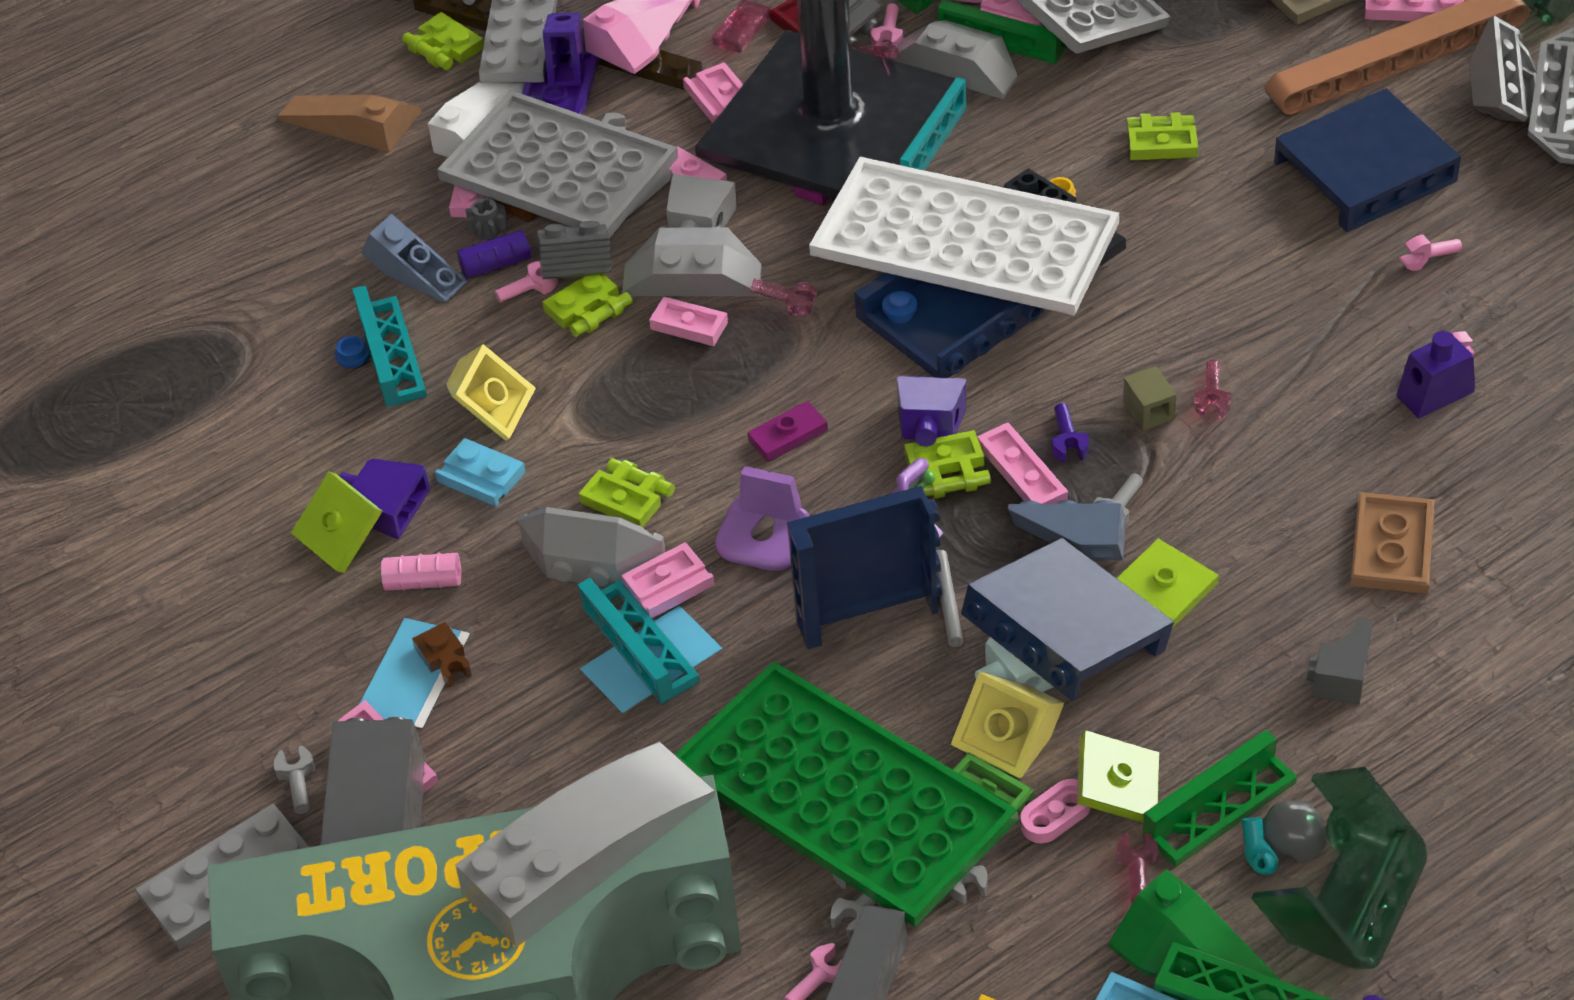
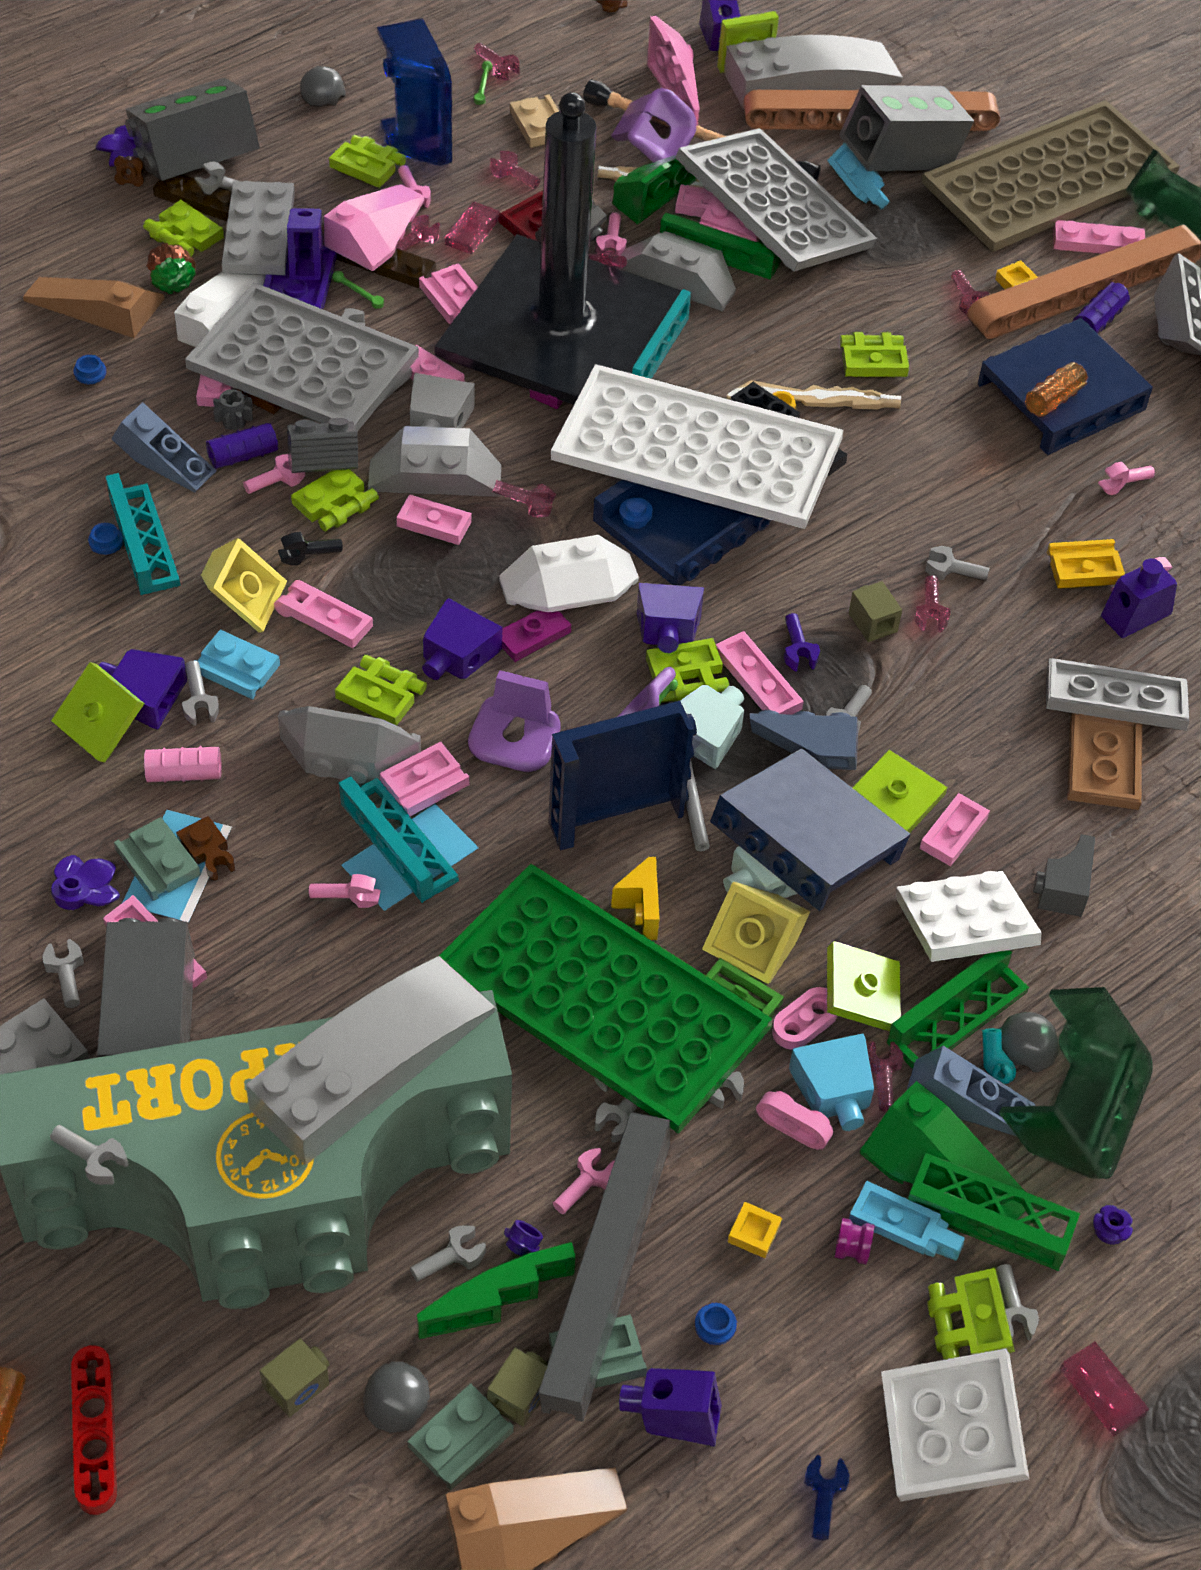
camera: 10 degrees left, 5 degrees up
(304, 938) = (92, 1154): none -> light grey bar
(317, 691) = (83, 883): none -> dark purple plate
(342, 185) = (89, 369): none -> blue plate
(392, 665) = (157, 858): none -> sand green plate
(427, 80) = (171, 268): none -> green piece
(440, 506) = (198, 695): none -> light grey bar
(545, 354) = (297, 548): none -> black bar
(571, 418) = (324, 613): none -> bright pink plate
(594, 691) = (359, 890): none -> bright pink bar
(640, 105) = (377, 301): none -> bright green hinge
(687, 32) = (420, 232): none -> clear pink bar
(709, 442) = (459, 642): none -> dark purple torso
(827, 371) = (568, 575): none -> white wedge
(885, 688) = (640, 892): none -> yellow slope
(969, 515) = (717, 721): none -> light aqua torso
(1038, 912) = (794, 1120): none -> bright pink plate
(1083, 870) = (835, 1078): none -> medium azure torso
(1121, 181) = (833, 397): none -> tan sword
(1220, 877) = (966, 1088): none -> sand blue slope
(1224, 617) = (954, 829): none -> bright pink plate
(1226, 347) = (950, 564): none -> light grey bar
(1232, 703) = (968, 916): none -> white plate
(1266, 65) = (967, 290): none -> clear pink bar
(1317, 46) = (1014, 275): none -> yellow plate
(1352, 162) = (1056, 389): none -> clear orange axle
(1379, 341) = (1085, 563): none -> yellow plate
(1408, 475) = (1117, 694): none -> light grey plate
(1414, 76) = (1105, 306): none -> dark purple axle

